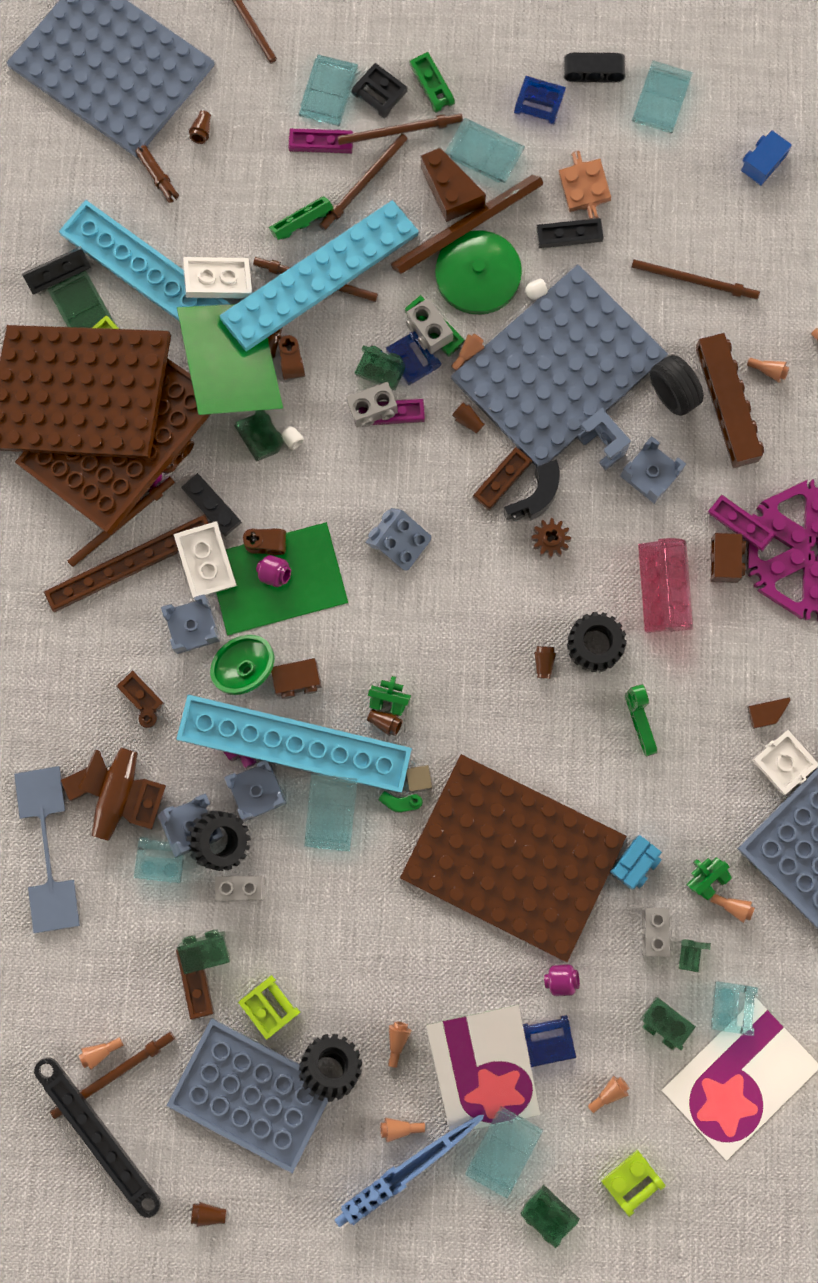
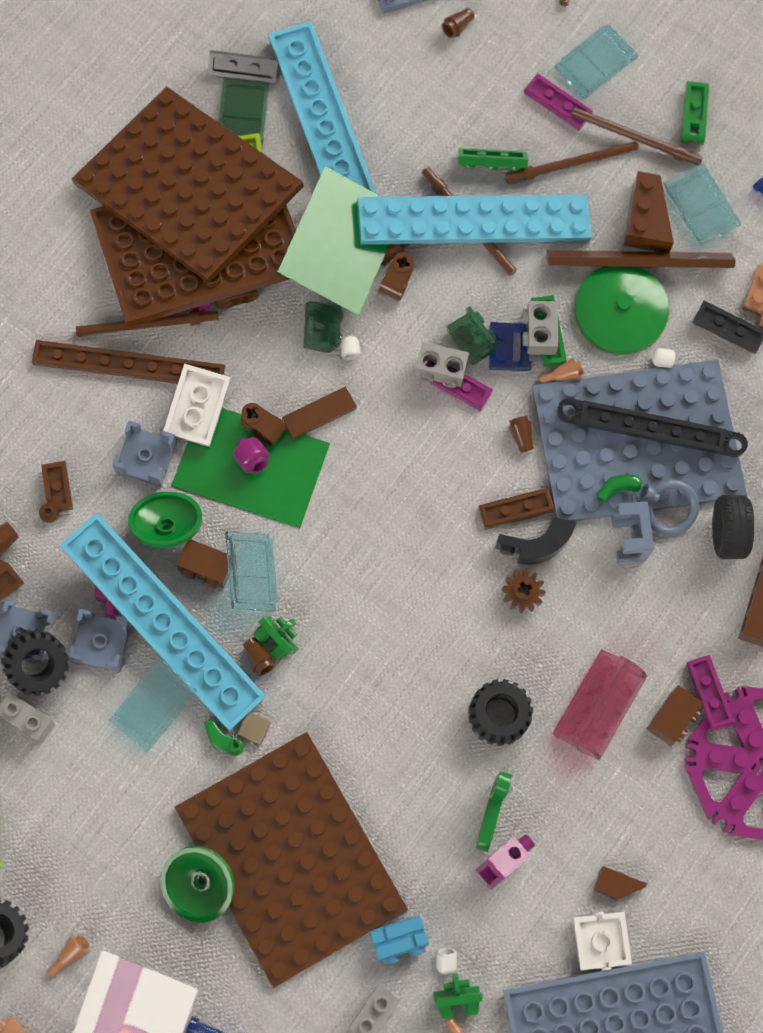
camera: 20 degrees right, 5 degrees down
(161, 179) = (390, 47): reddish brown pin -> none
(211, 504) = (237, 360): black plate -> none
(217, 277) = (380, 163): white plate -> none
(302, 504) = (319, 413): none -> reddish brown tile
(335, 660) = (251, 571): none -> clear light blue piece
(383, 84) = (649, 89): black plate -> none
(399, 538) = (385, 500): sand blue bracket -> none
(458, 935) = (187, 891): none -> green dish
(544, 661) = (441, 698): reddish brown cone -> none
(562, 980) = (257, 1001): magenta head -> none
(564, 348) = (652, 427): none -> black plate
(568, 409) = (619, 484): none -> green arm
(599, 401) = (652, 495): none -> sand blue piece
(652, 471) = (659, 591): sand blue panel -> none
(675, 751) = (500, 863): none -> torso
(683, 856) = (446, 961): none -> white piece

